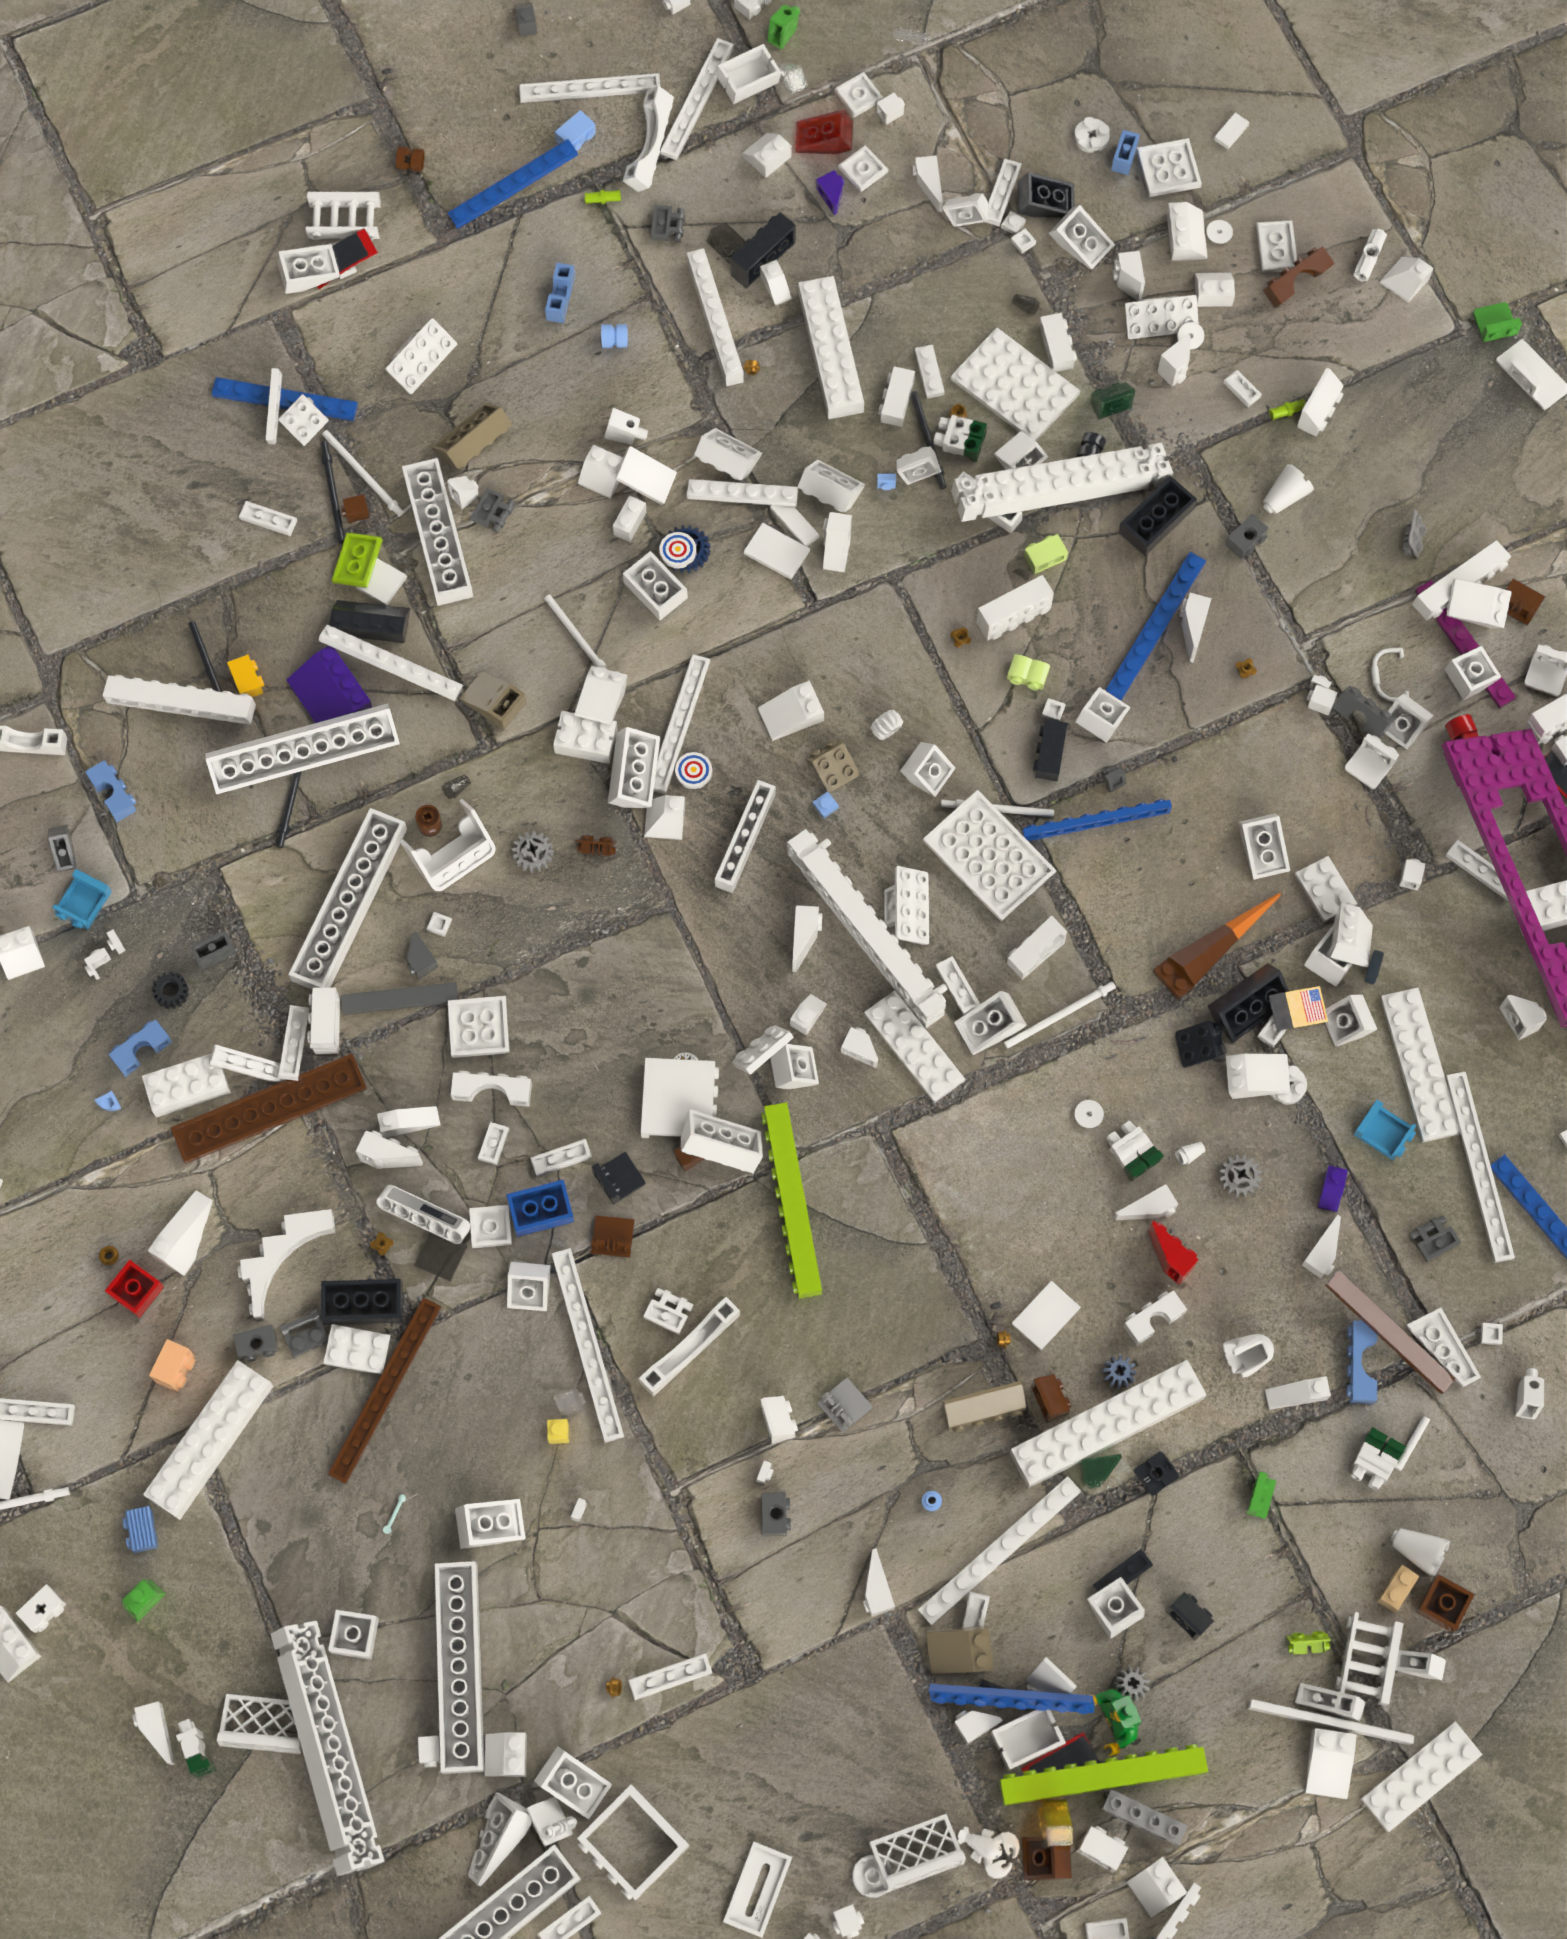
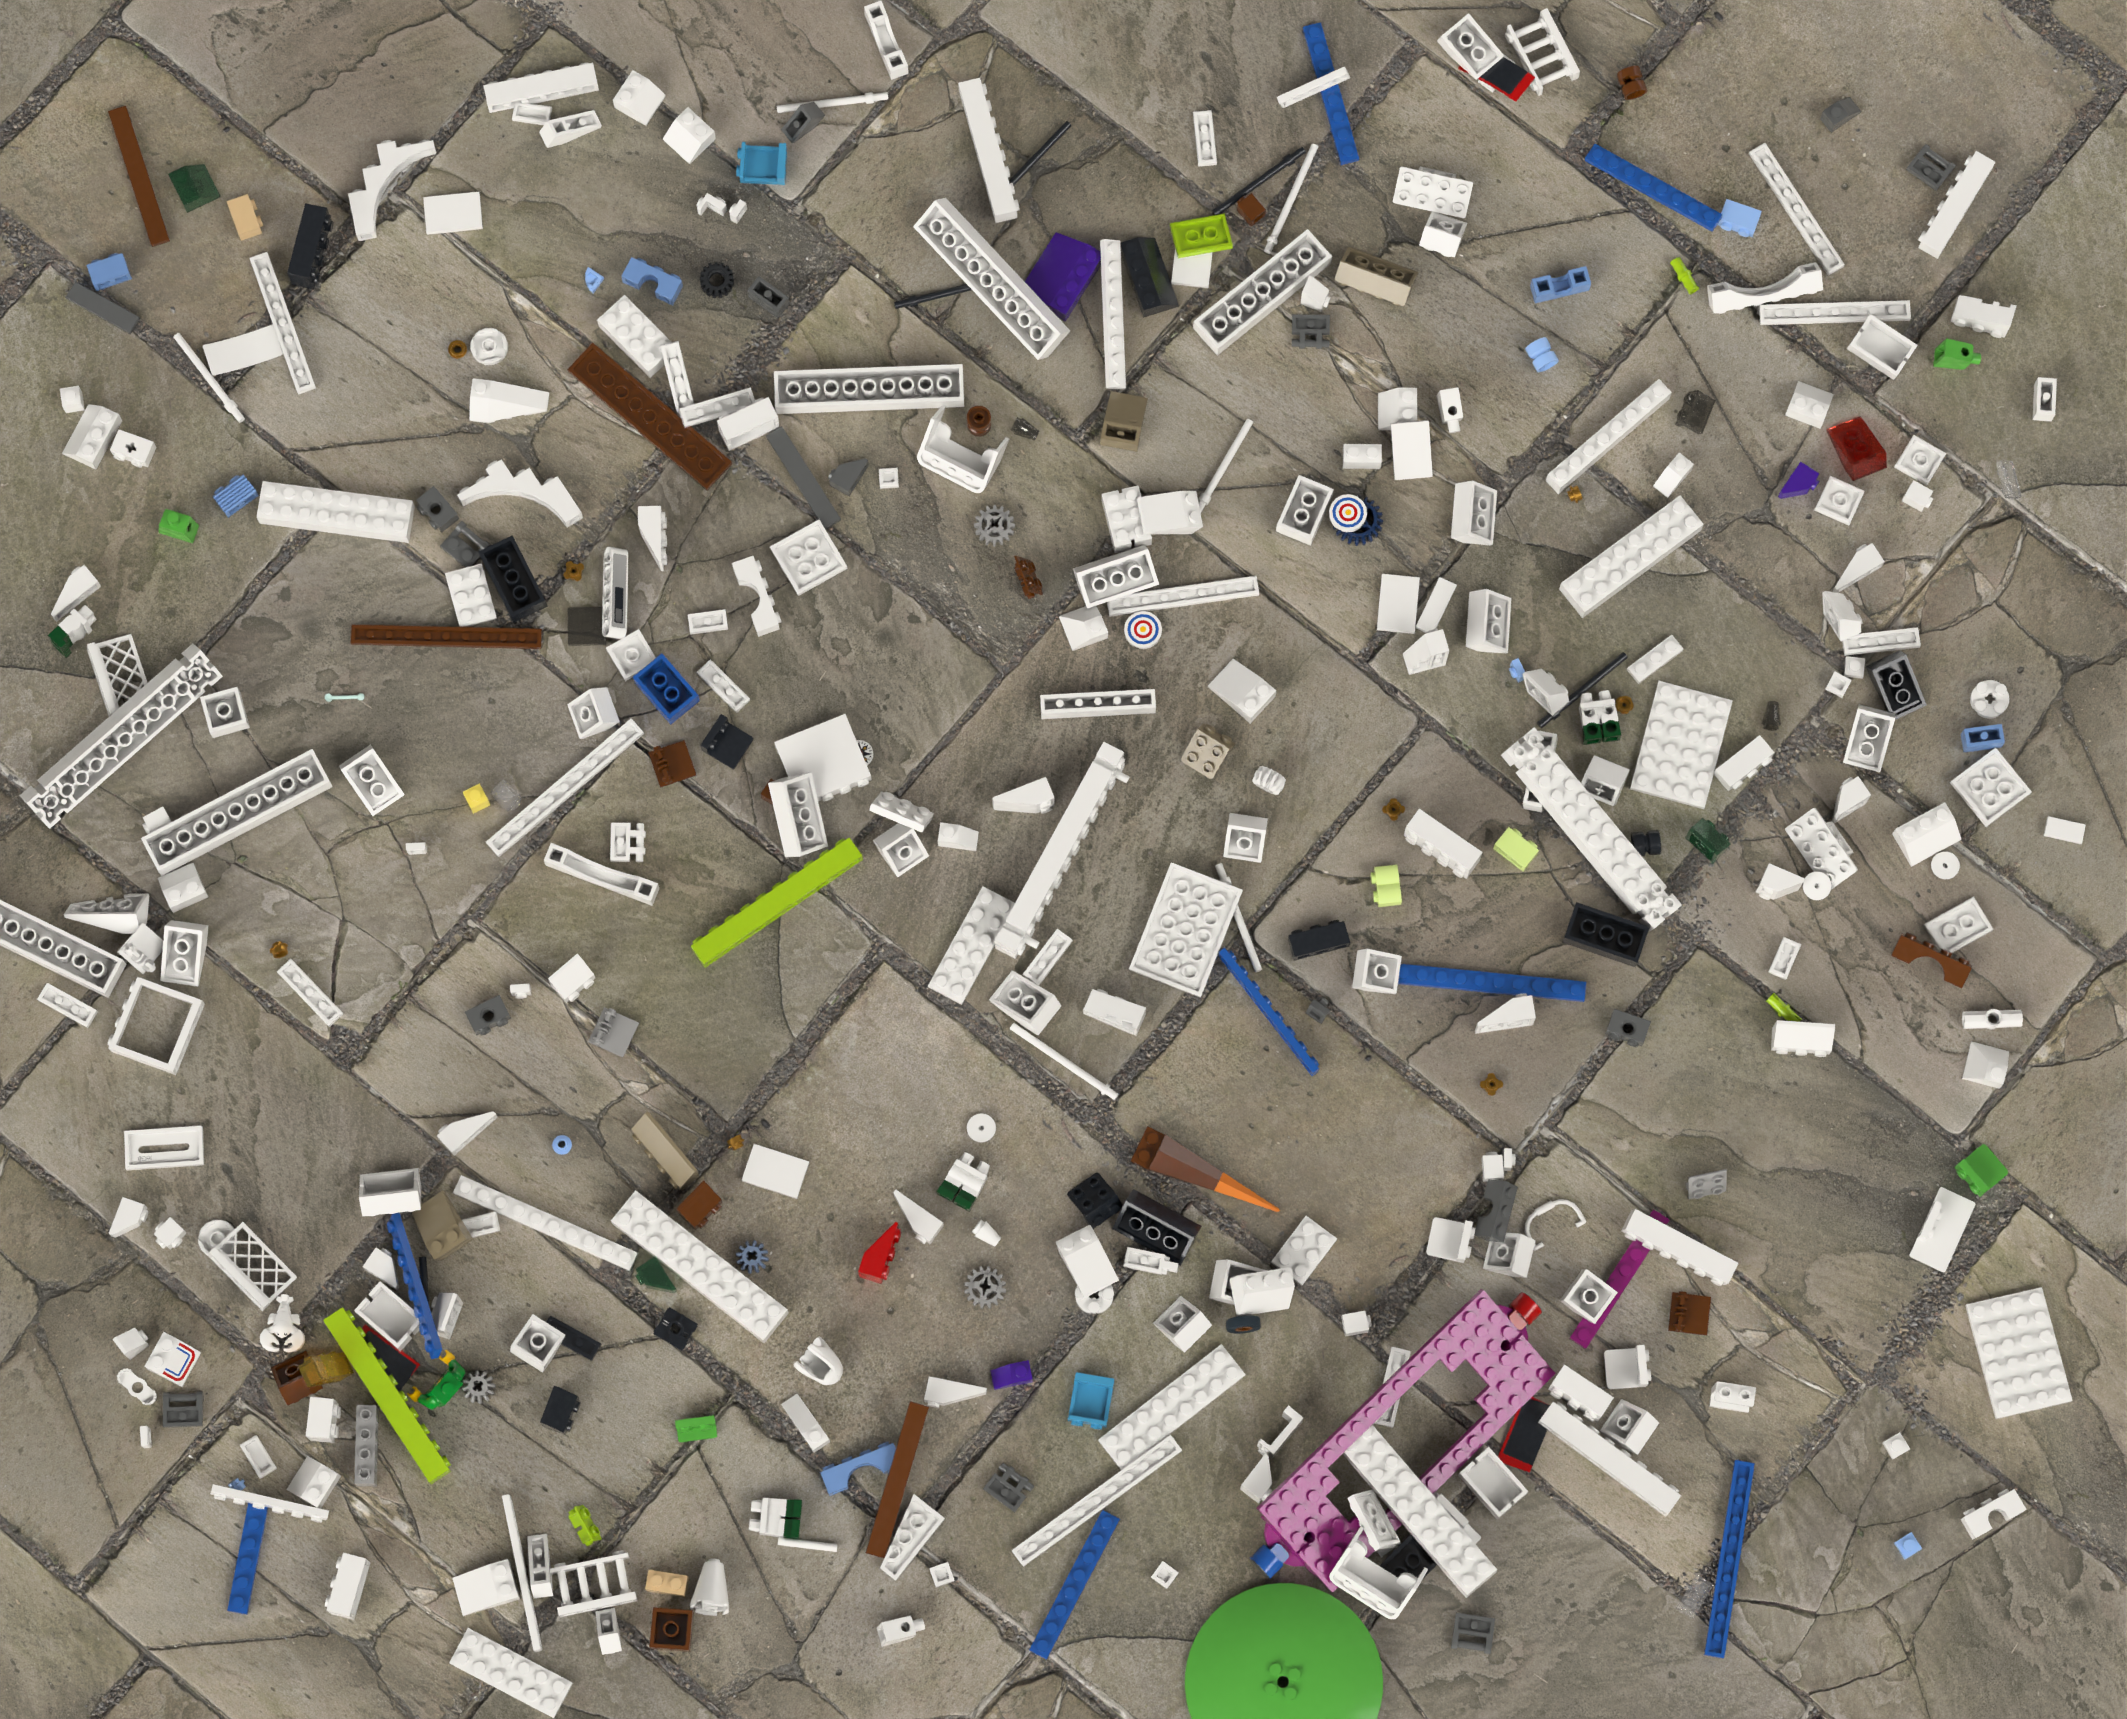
camera: 65 degrees right, 5 degrees up
(71, 782) = (868, 98): none -> white bar
(103, 778) = (869, 150): medium blue arch -> none
(121, 1225) = (489, 346): none -> white tile
(134, 1288) = (436, 384): red brick -> none
(172, 1366) = (383, 450): light nougat brick -> none
(245, 676) = (1039, 196): yellow brick -> none
(303, 419) = (1314, 120): white hinge -> none
(407, 1120) = (693, 538): white slope -> none
(463, 365) = (1442, 234): none -> white slope
(662, 220) = (1683, 342): dark grey plate -> none
(742, 492) = (1440, 545): white plate -> none
(766, 246) = (1699, 447): black brick -> none
(792, 77) = (1903, 388): clear slope -> none
(825, 805) = (1167, 762): light blue plate -> none
(859, 1046) = (948, 896): white slope -> none
(896, 396) = (1611, 640): white brick -> none
(907, 1682) = (390, 1192): none -> white piece
(908, 905) = (1103, 880): white bracket -> none
(1053, 710) = (1360, 925): white plate -> none
(1167, 1306) = (803, 1256): white arch -> none
(1214, 289) = (1879, 886): white slope -> none
(1264, 846) = (1318, 1175): white slope -> none
(1276, 1897) = (347, 1586): none -> white piece
(1287, 490) = (1693, 1044): white cone -> none
(1298, 1008) = (1170, 1272): sticker -> none
(1478, 604) = (1659, 1271): white slope -> none
(1491, 977) = (1294, 1422): none -> white panel

